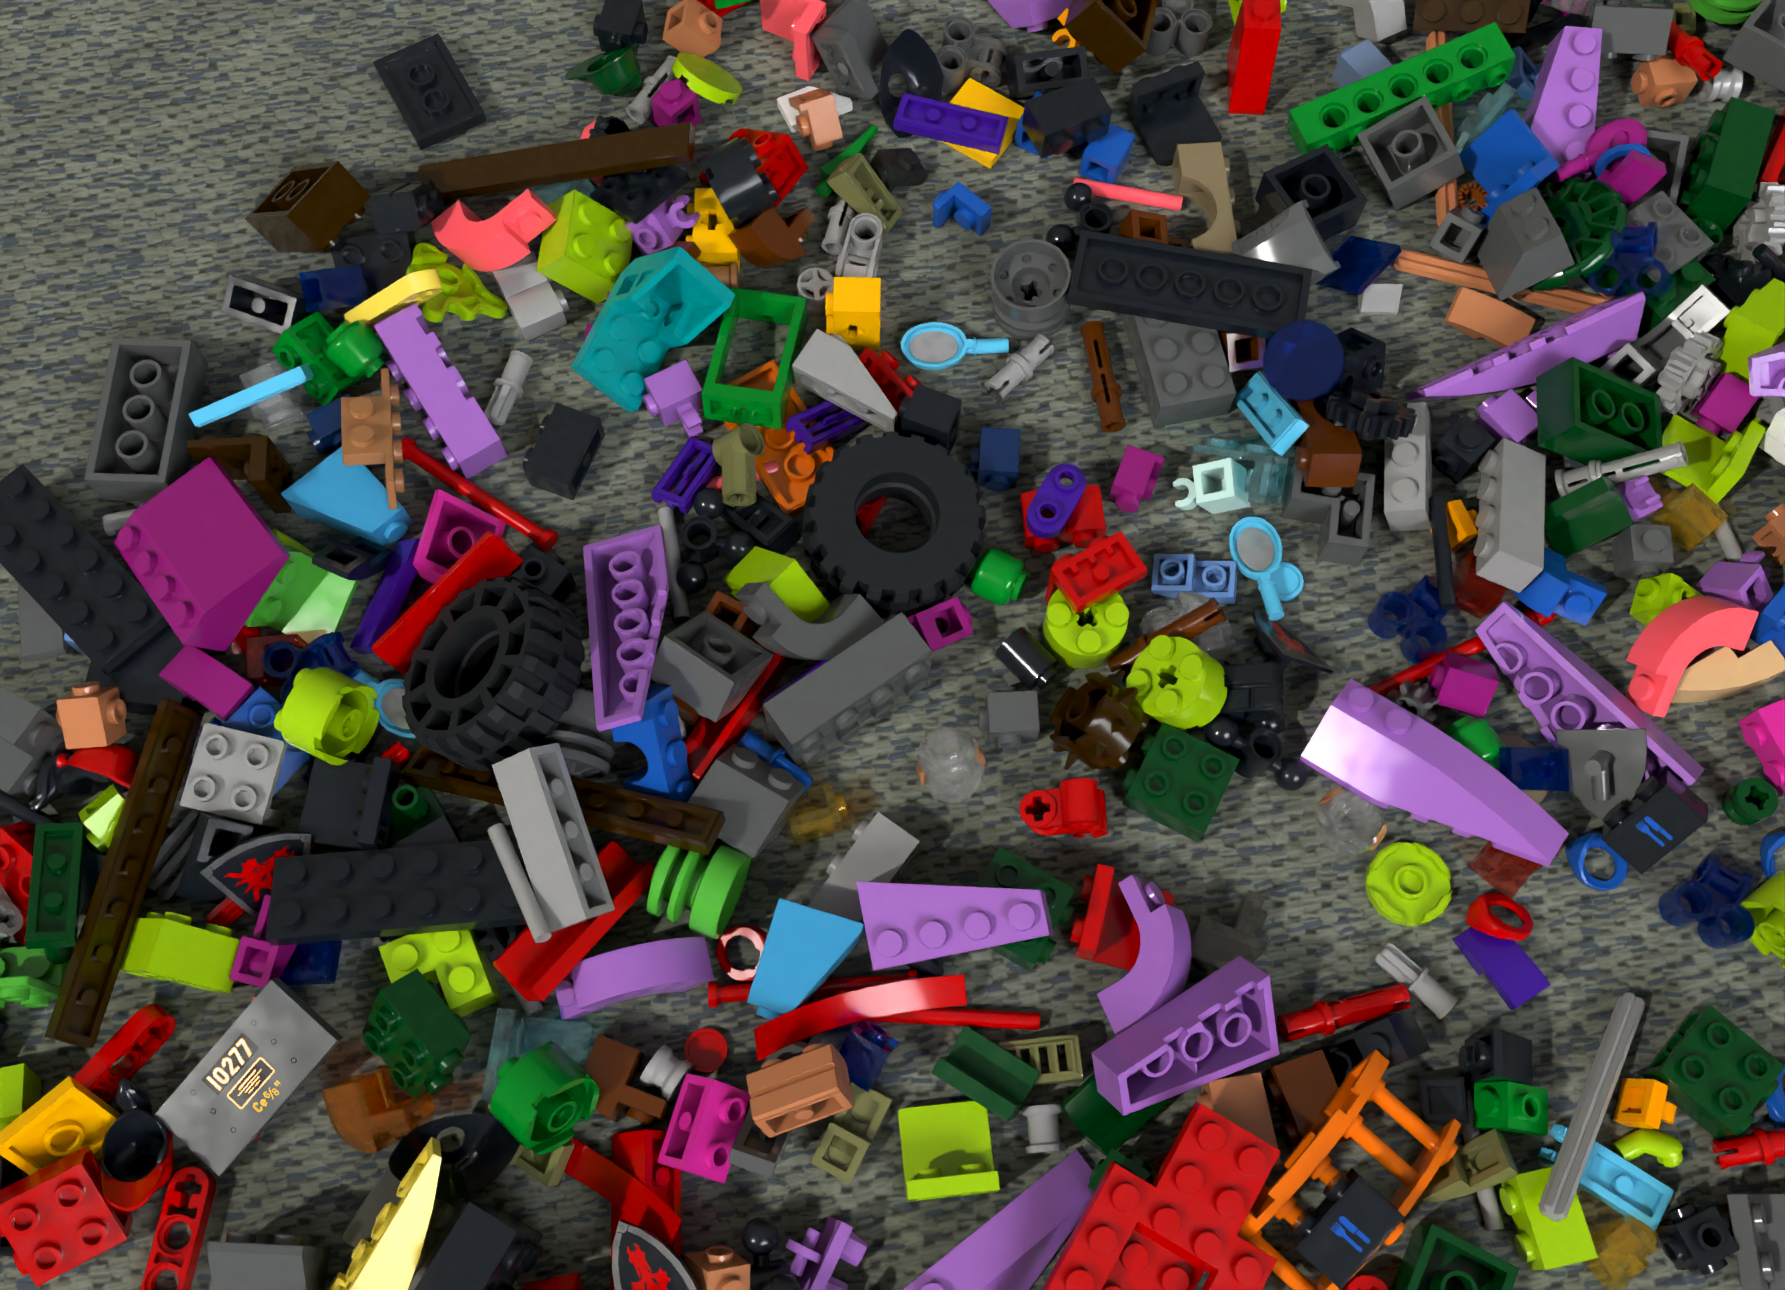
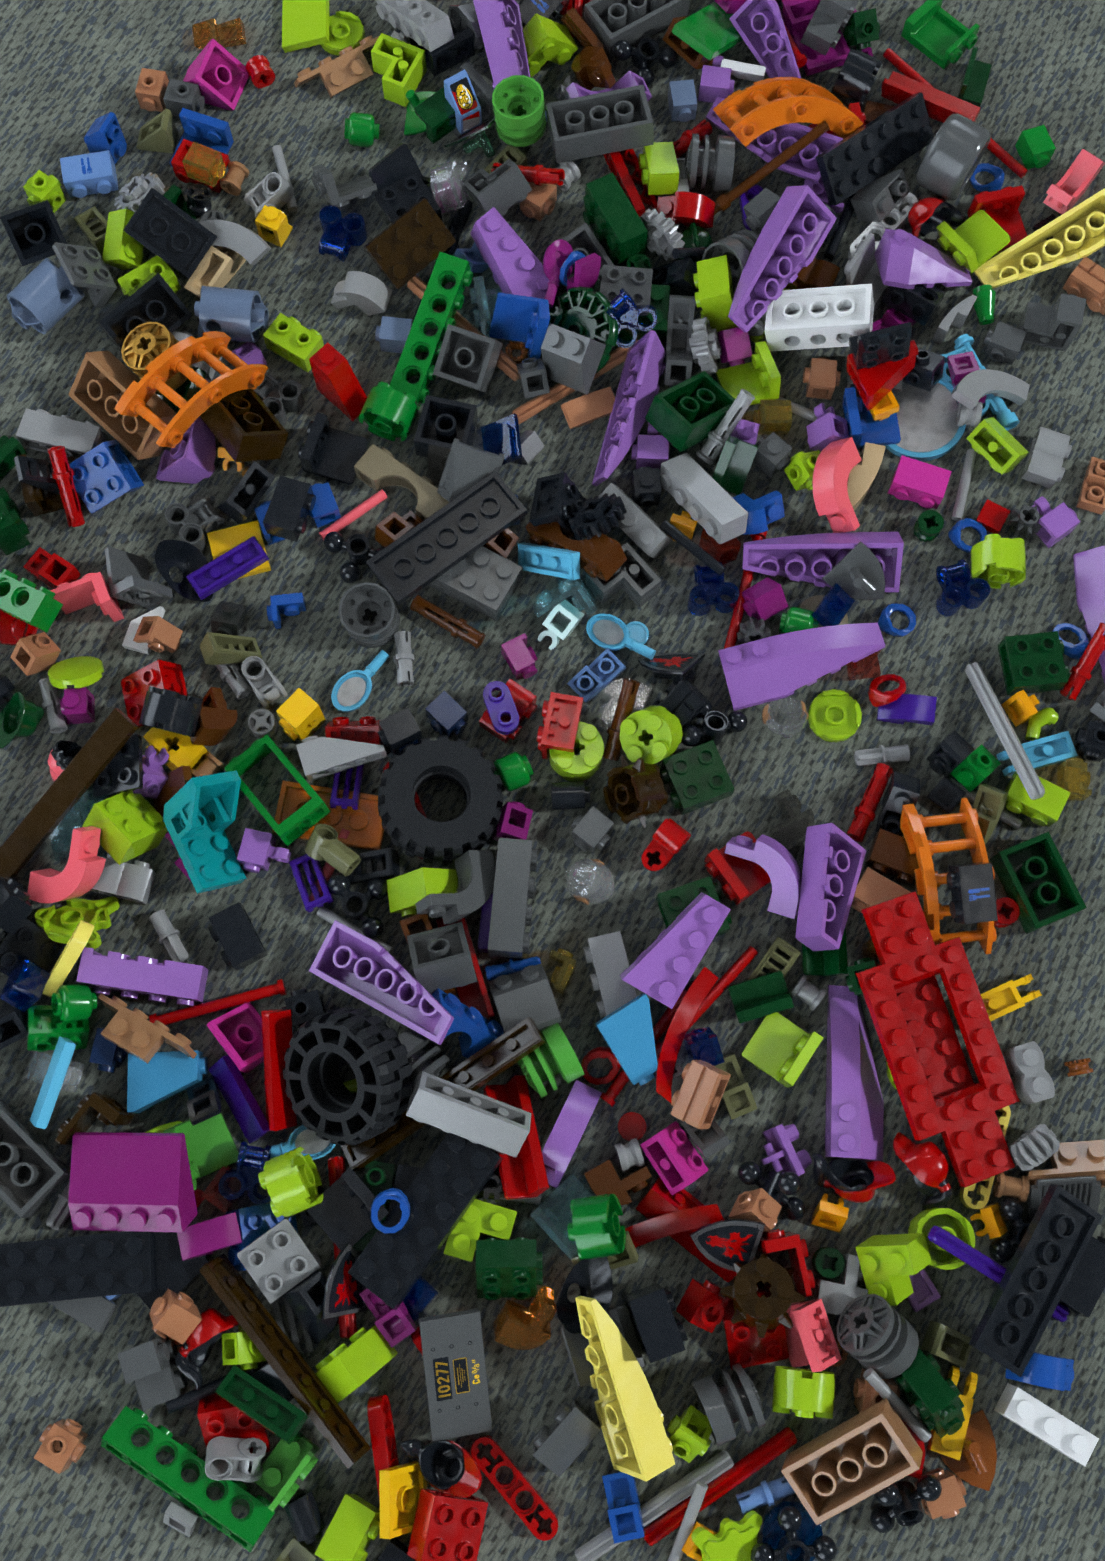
camera: 50 degrees left, 5 degrees up
(393, 854) = (380, 1199): none -> blue piece
(519, 883) = (477, 1151): light grey bar -> none
(859, 145) = (195, 640): green piece -> none
(1270, 128) = (389, 412): none -> green brick
(1304, 361) = (541, 521): clear blue tile -> none
(1654, 821) = (904, 578): black brick -> none

